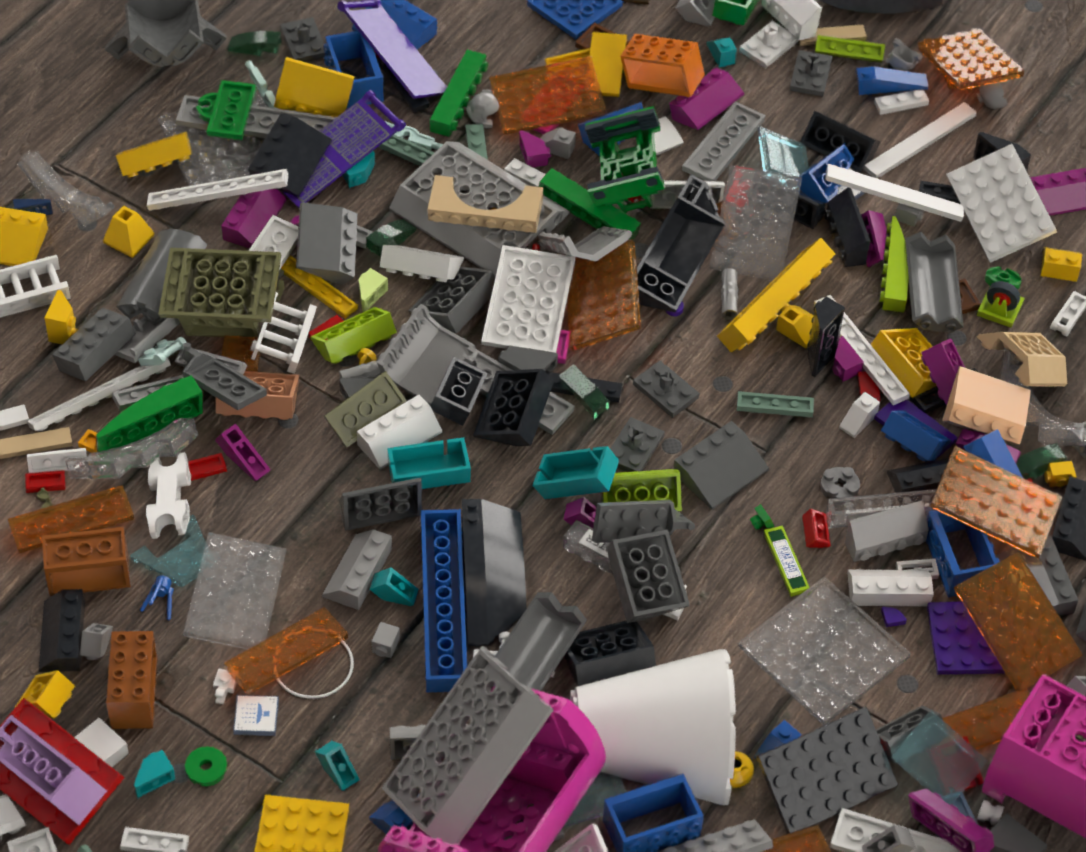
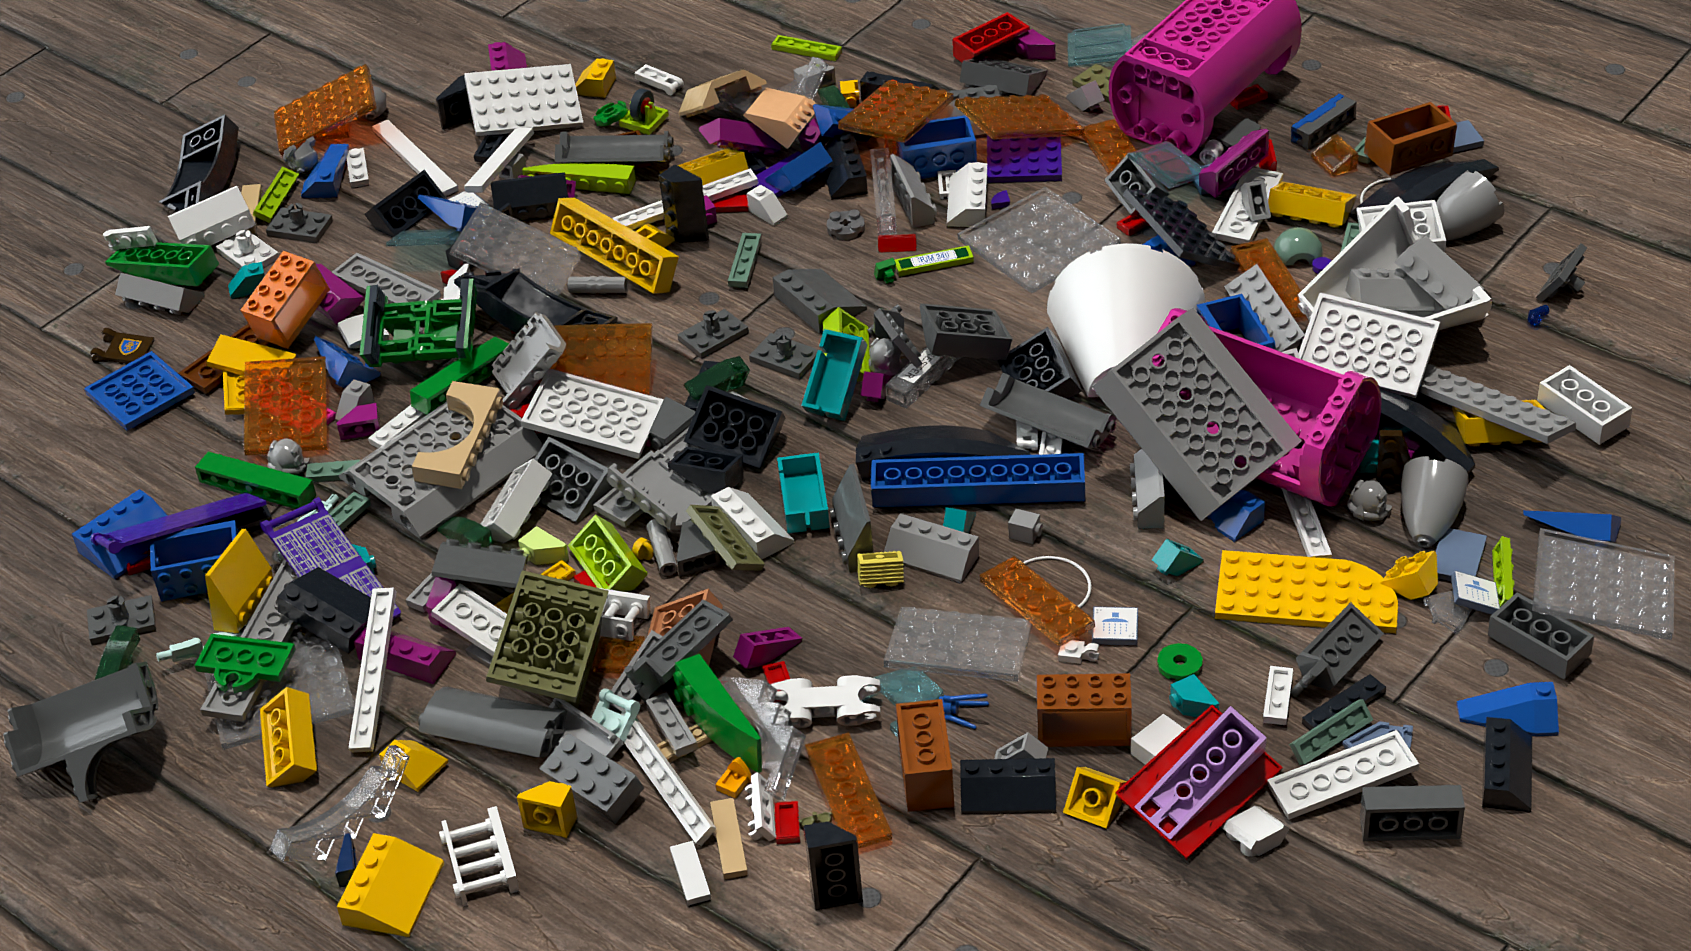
camera: 80 degrees left, 10 degrees down
(328, 527) = (880, 568): none -> light yellow brick

